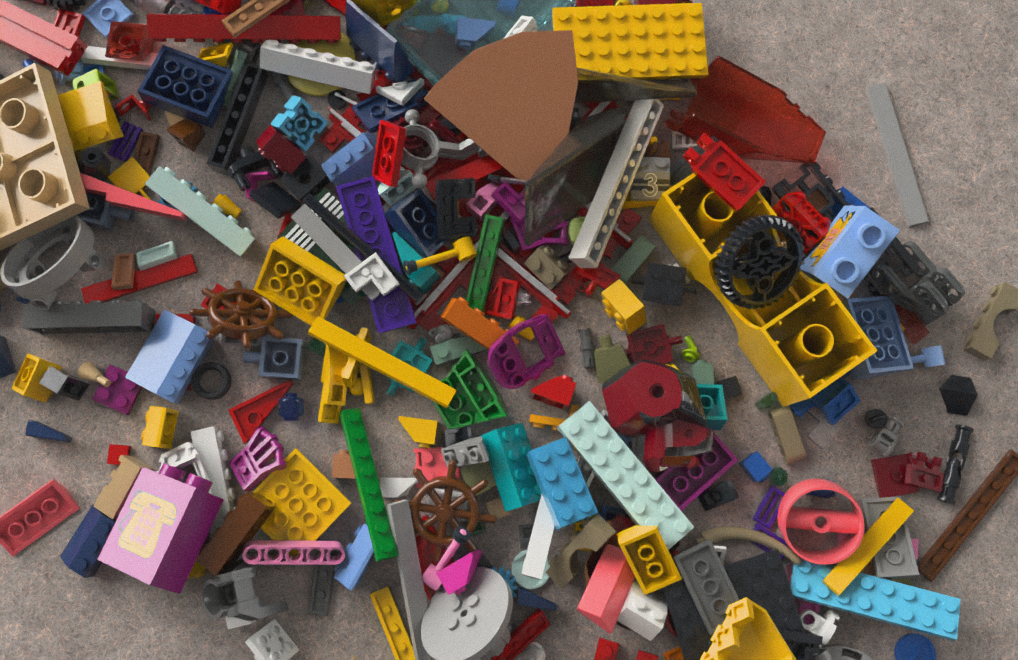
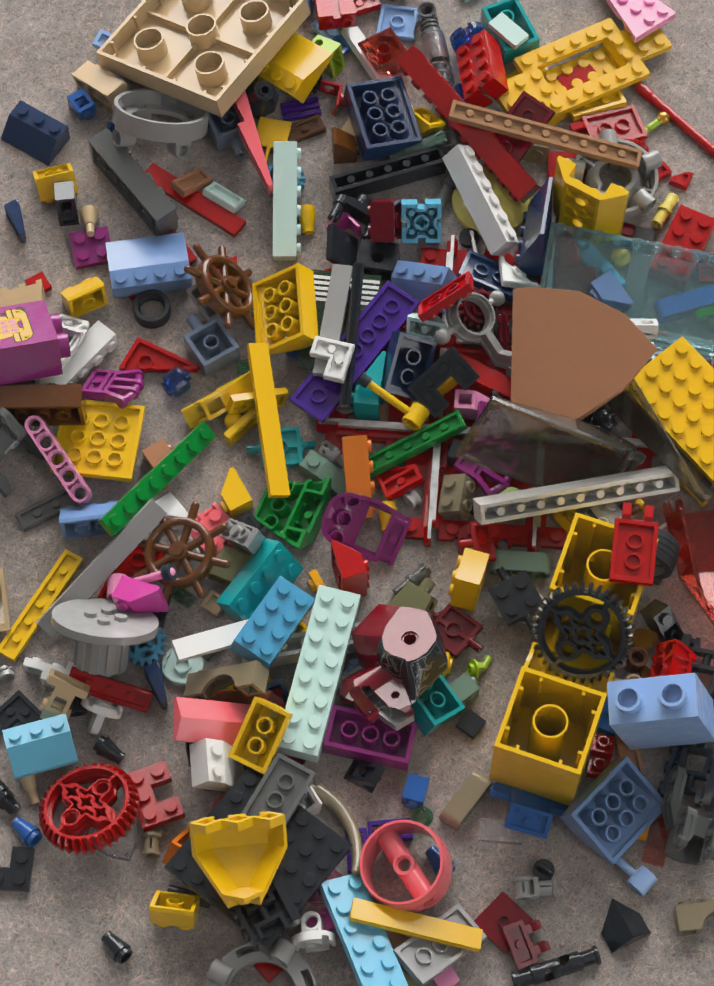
camera: 55 degrees right, 15 degrees down
(767, 401) = (481, 760): clear green tile -> none

